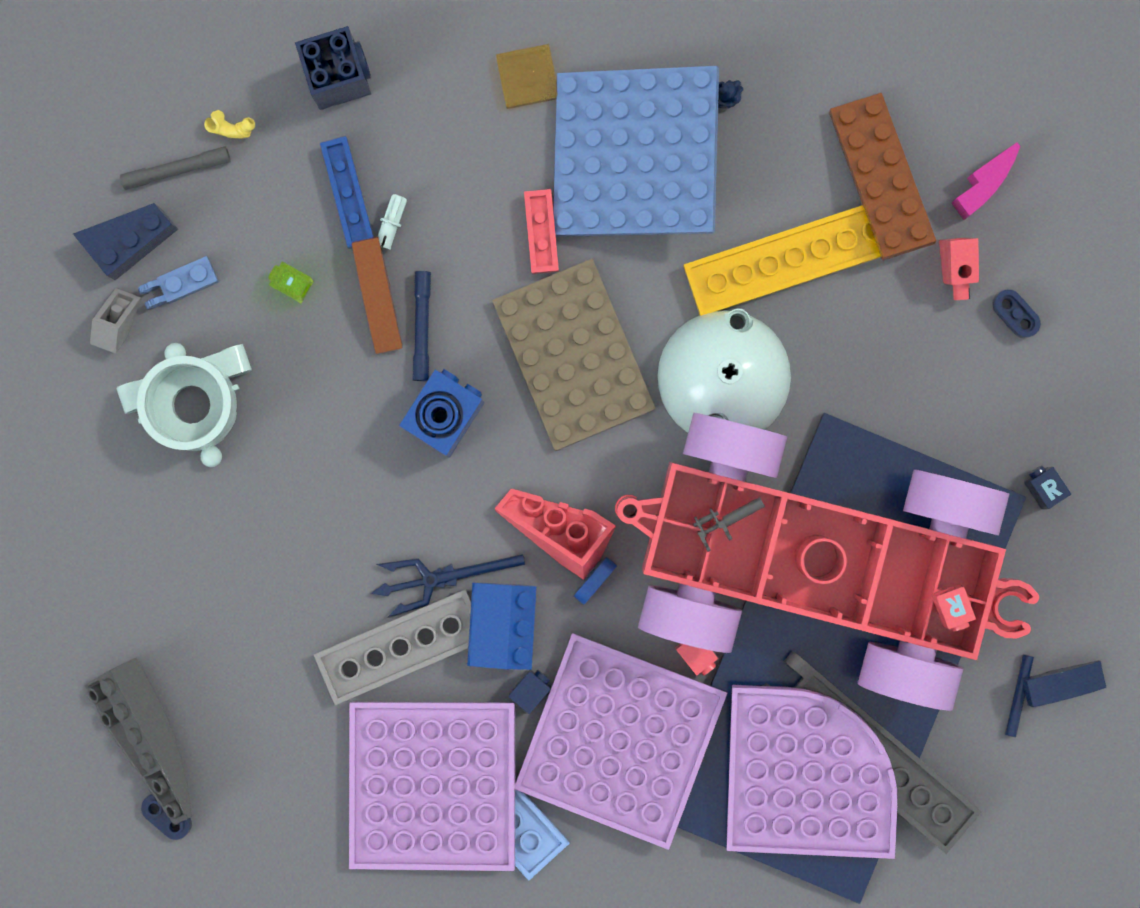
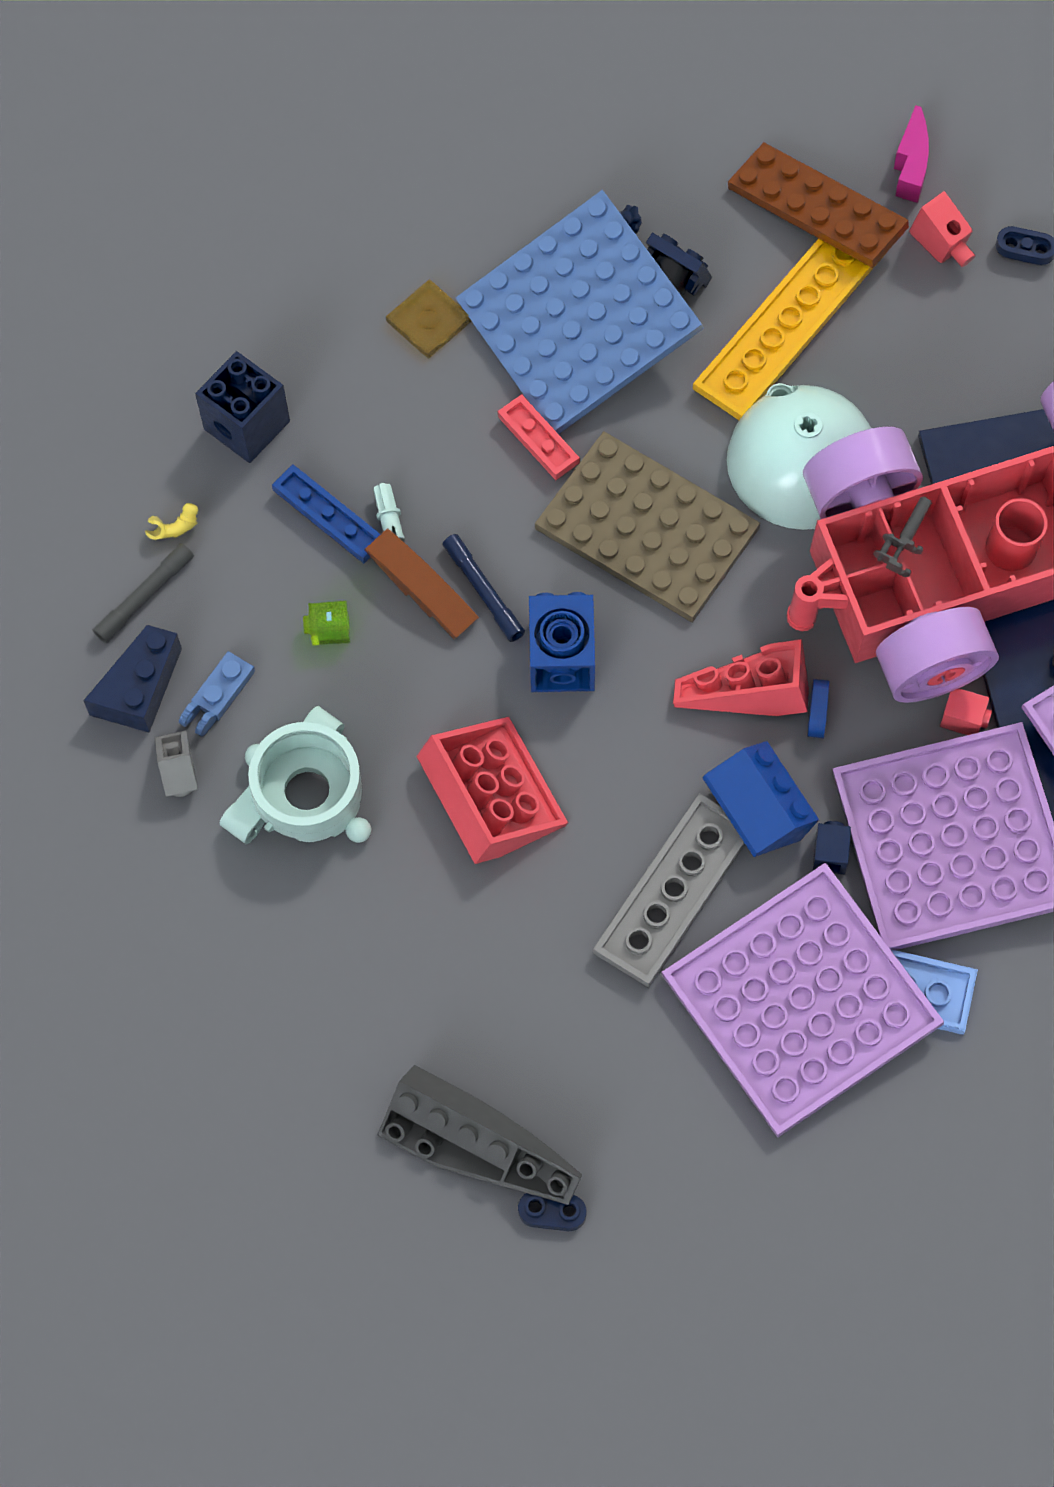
camera: 30 degrees left, 20 degrees down
(324, 487) = (490, 788): none -> coral slope
(439, 578) = (665, 803): dark blue piece -> none
(736, 160) = (682, 268): none -> dark blue piece

